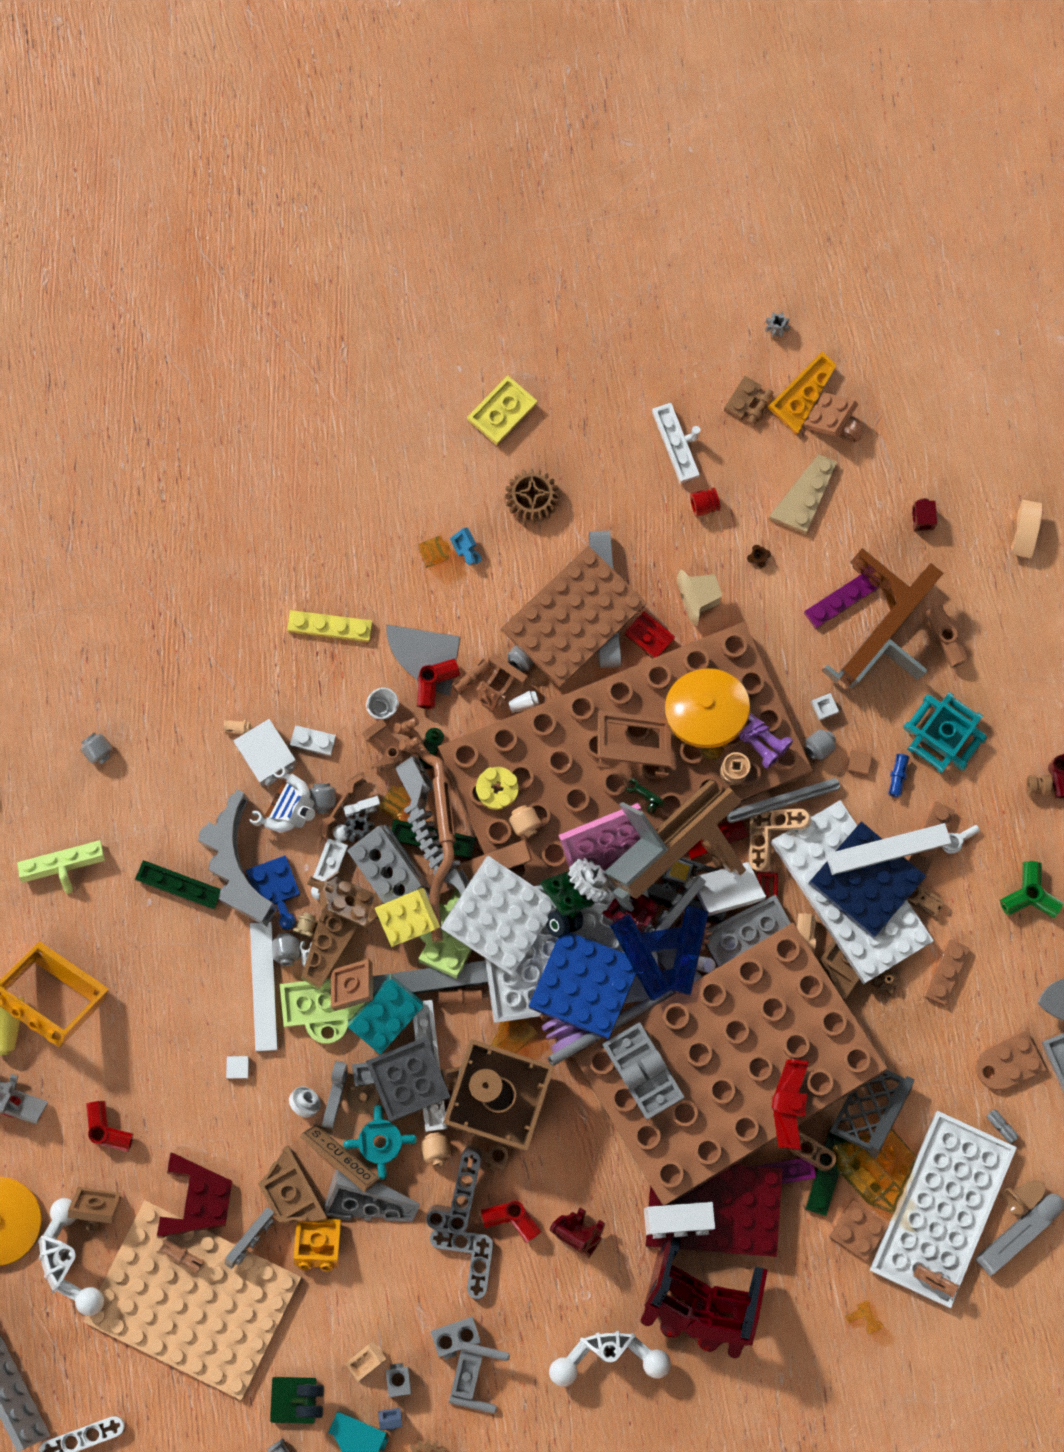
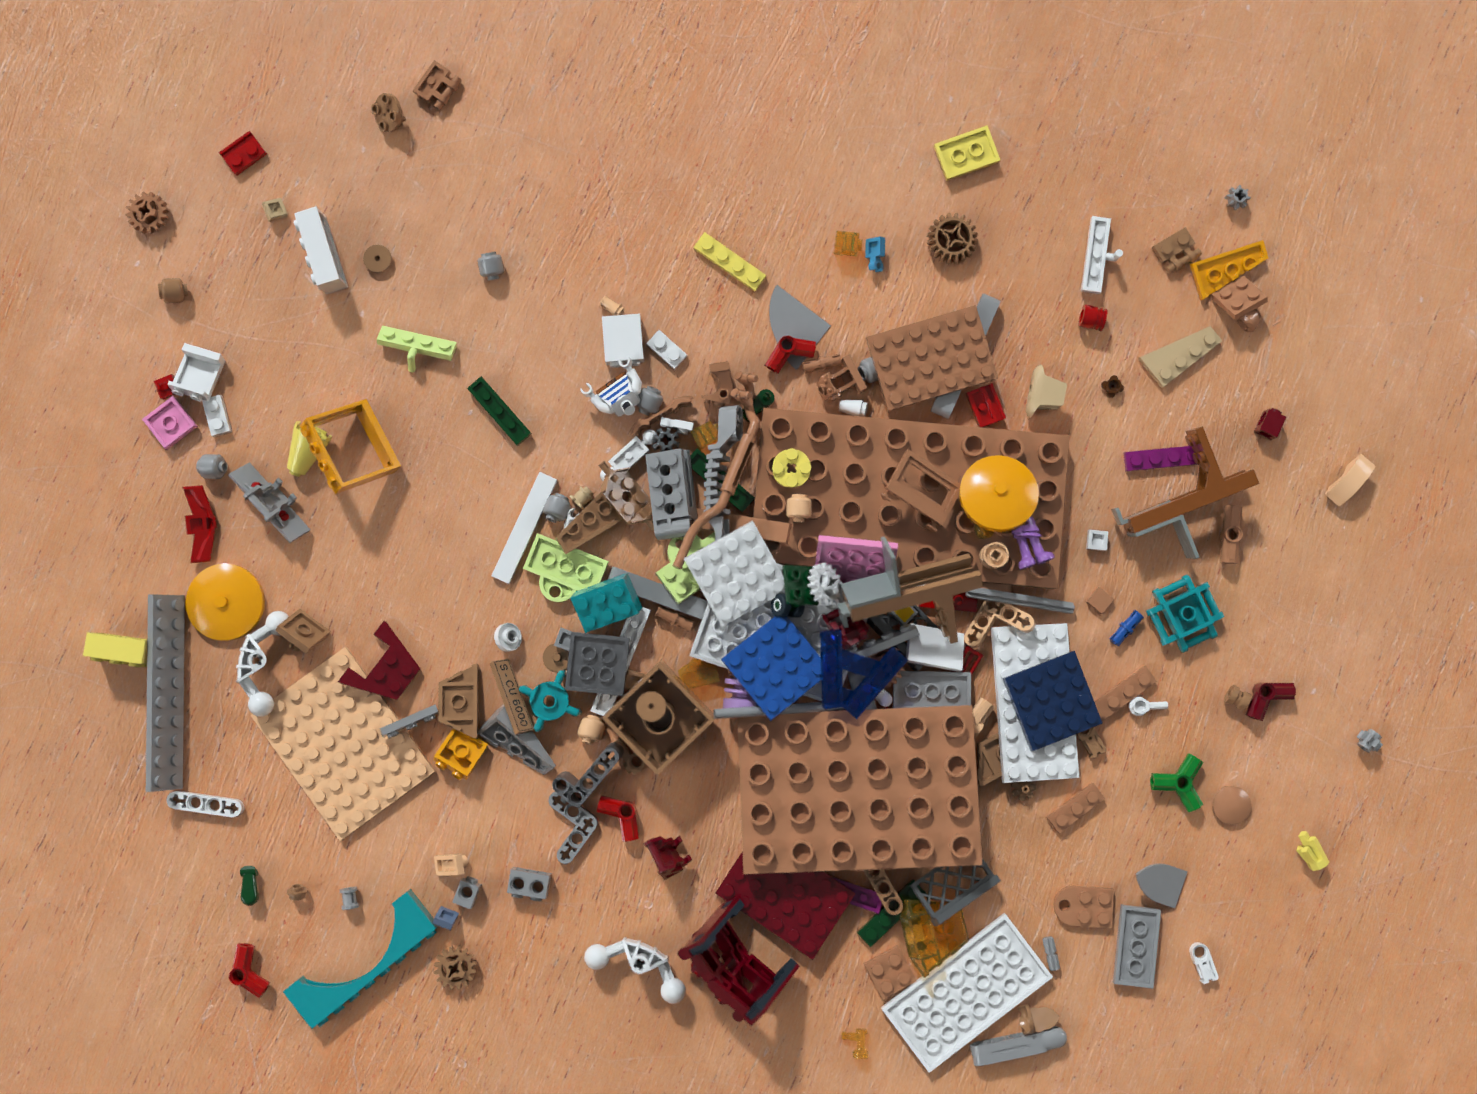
camera: 30 degrees right, 10 degrees up
(98, 1120) = (344, 585): red piece -> none
(181, 1255) = (349, 706): nougat pin -> none
(226, 864) = (544, 415): light grey arch -> none
(237, 1067) = (470, 581): white tile -> none
(276, 884) = (574, 450): blue plate -> none
(295, 1400) = (381, 863): dark green plate -> none
(338, 1079) = (541, 635): light grey beam -> none
(351, 985) = (591, 565): nougat plate -> none
(382, 703) = (737, 348): white hair -> none
(407, 917) = (663, 535): light yellow plate -> none
(467, 1375) = (521, 919): light grey plate -> none
(643, 1071) = (784, 761): light grey plate -> none
(653, 799) = (911, 541): dark green piece -> none
(679, 1219) = (750, 891): white brick -> none
(789, 1103) = (887, 852): red plate -> none
(820, 744) = (1076, 569): light grey head -> none
(888, 849) = (1083, 686): white tile -> none
(936, 1280) = (929, 1046): nougat pin -> none

